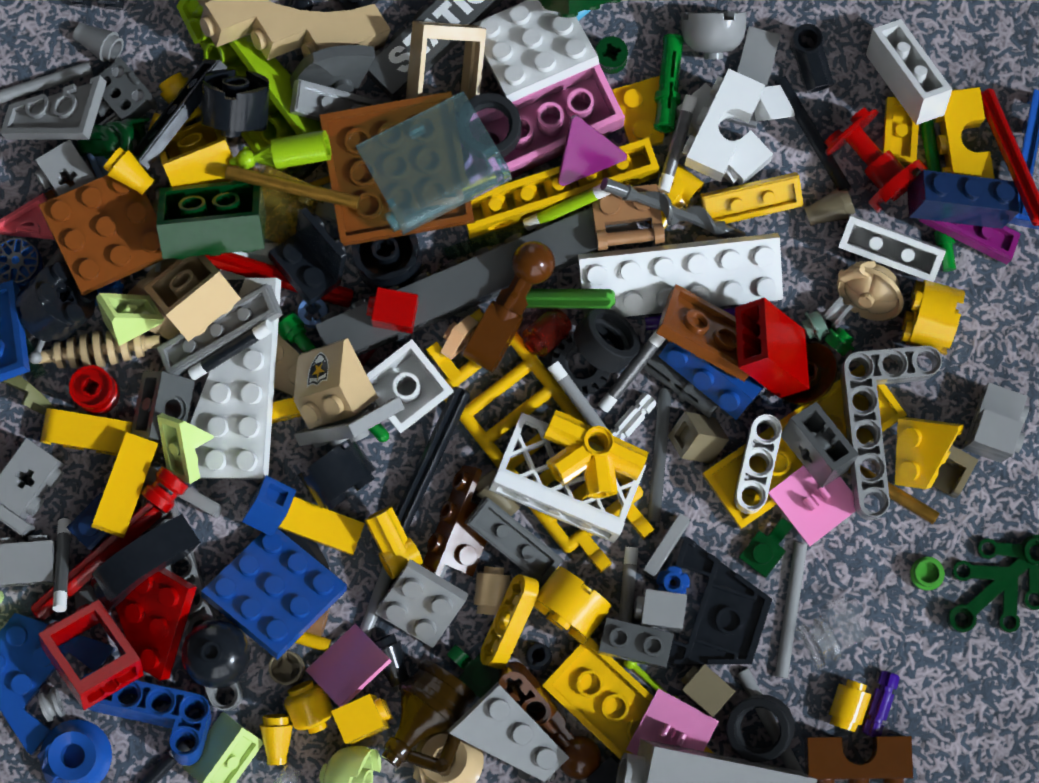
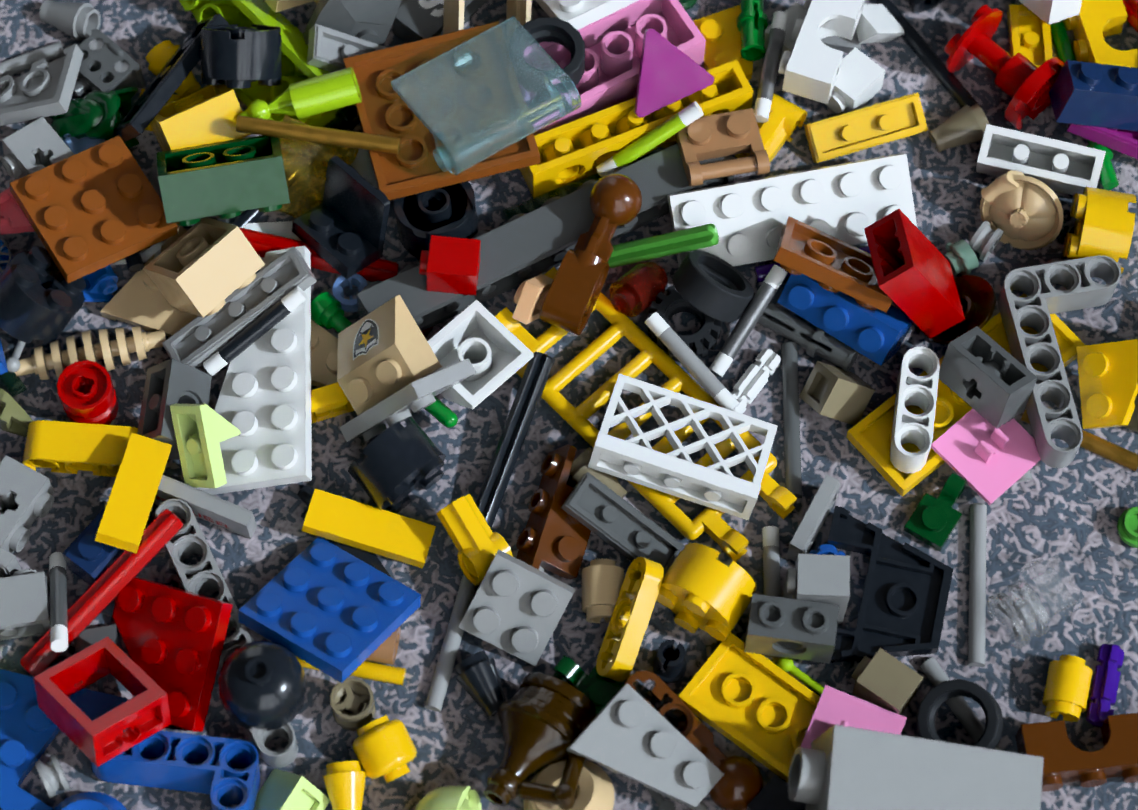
camera: 10 degrees left, 15 degrees down
(128, 171) = (117, 135): yellow cone -> none
(128, 315) = (123, 305): yellowish green slope -> none
(142, 559) = (157, 575): black arch -> none
(161, 497) = (185, 493): red wheel -> none
(269, 506) = (315, 508): blue panel -> none
(348, 665) = (431, 689): bright pink piece -> none
(362, 718) = (457, 742): yellow arch -> none
(579, 457) = (719, 420): yellow piece -> none
(673, 214) = (764, 124): dark grey piece -> none
(840, 340) = (993, 270): green plate -> none

